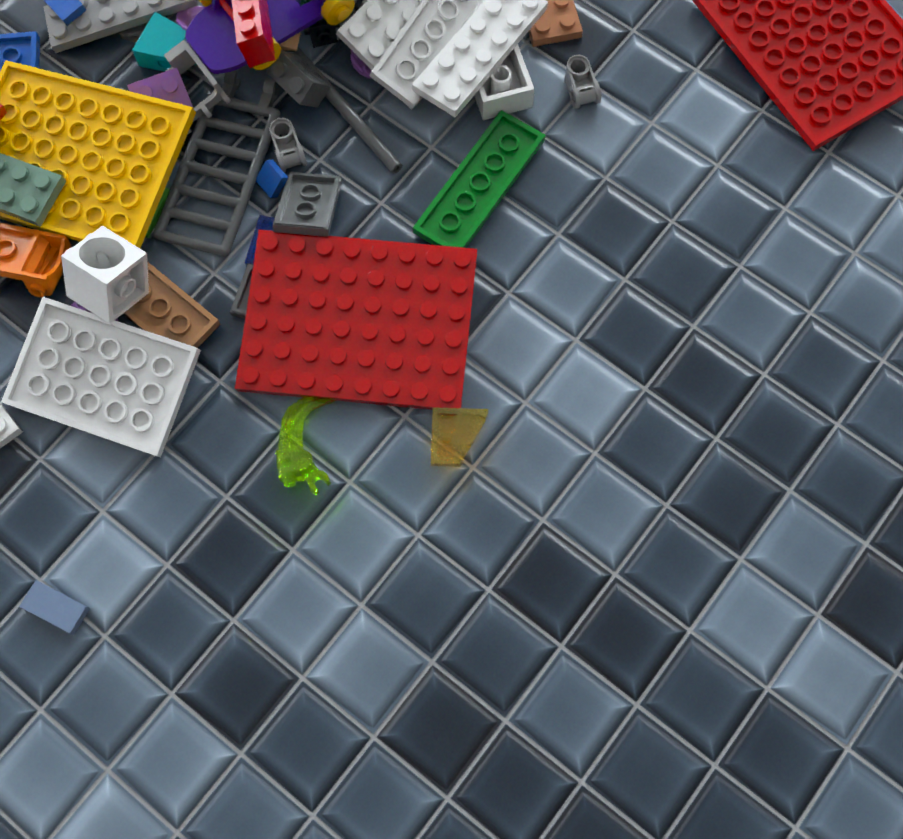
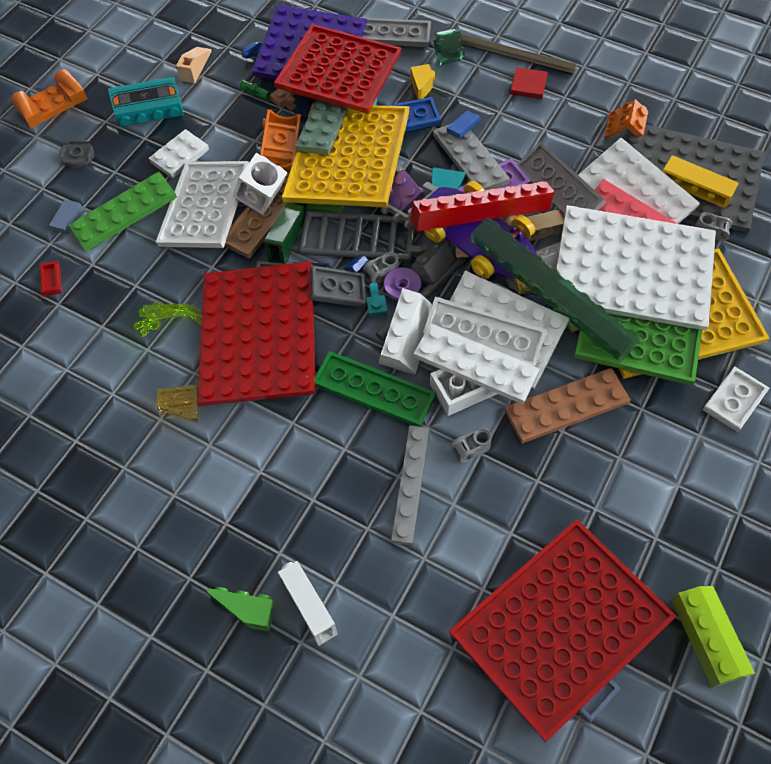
camera: 80 degrees right, 10 degrees down
(76, 507) = (122, 211): none -> bright green plate
(180, 631) = (50, 278): none -> red tile
(195, 262) = (284, 233): none -> dark green slope
(318, 116) = (401, 277): none -> medium lavender dish
(341, 164) = (376, 304): none -> teal plate
(401, 131) = (405, 332): none -> white slope
(621, 162) = (410, 486): none -> light grey plate
(774, 288) = (308, 602): none -> white slope
(774, 358) = (250, 610): none -> bright green slope

